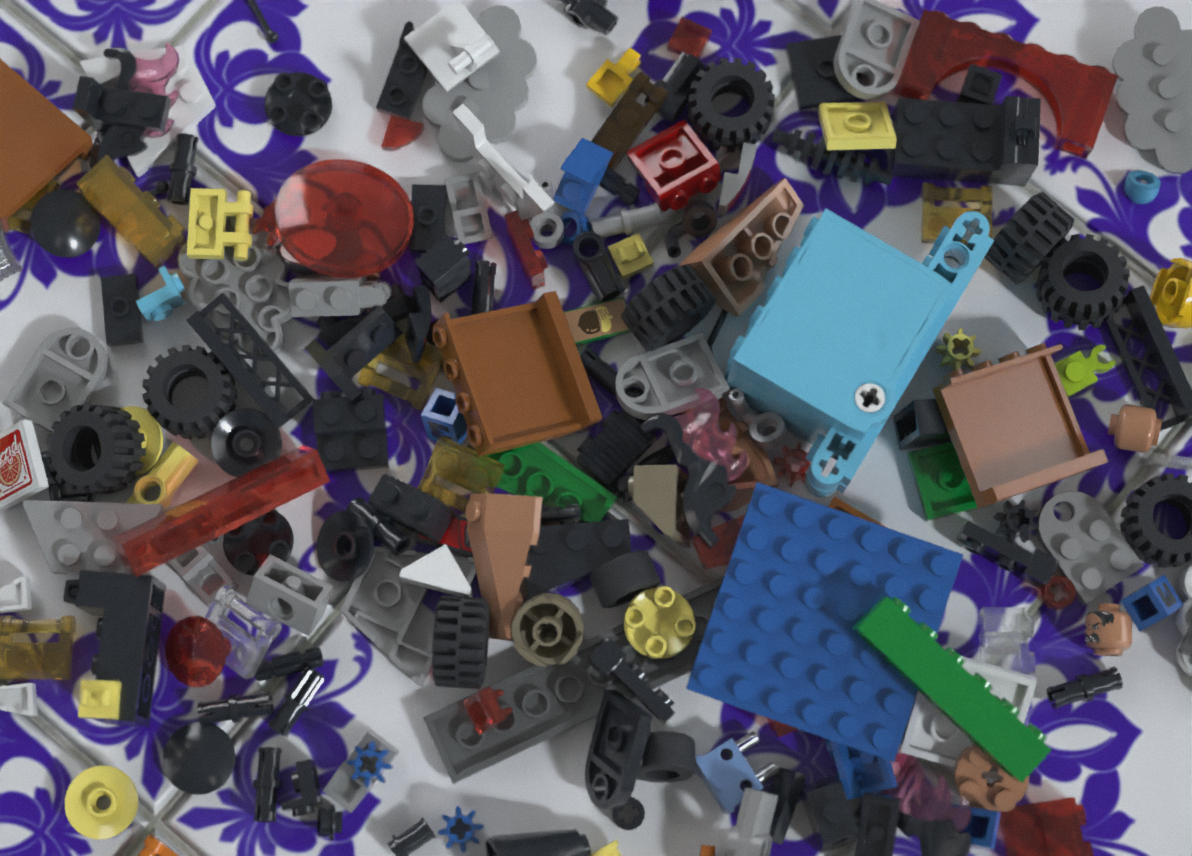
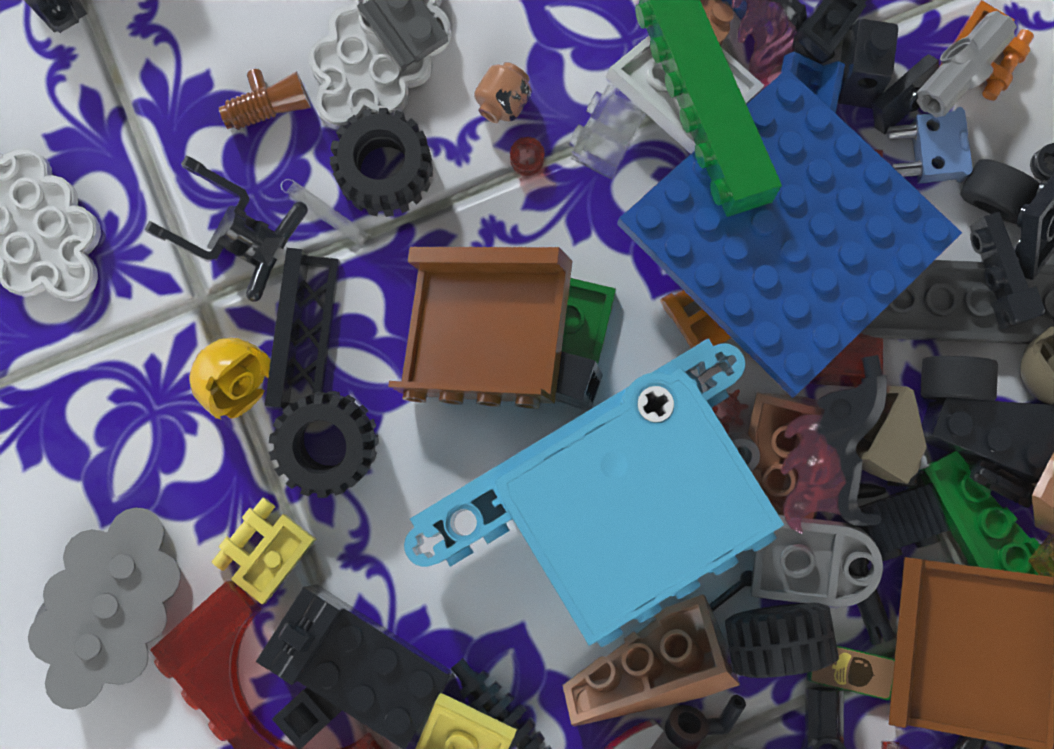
camera: 155 degrees left, 5 degrees up
(630, 256) = (777, 724): light yellow tile -> none
(659, 622) = (946, 317): light yellow dish -> none
(937, 217) = (427, 585): clear yellow plate -> none
(955, 342) = (501, 446): light yellow gear -> none
(1007, 525) = (531, 229): black gear -> none
(1029, 237) = (354, 515): black tyre -> none
(1034, 567) = (538, 189): black plate -> none
(1069, 181) = (273, 557): none -> light yellow plate
(1078, 373) = (381, 359): lime plate -> none
(1084, 687) = (554, 56): black pin -> none
(1086, 546) = (473, 186): light grey plate -> none
(1135, 428) = (360, 268): nougat head -> none
(1139, 192) = (203, 511): dark azure piece -> none
(1151, 603) = (447, 94): blue brick -> none

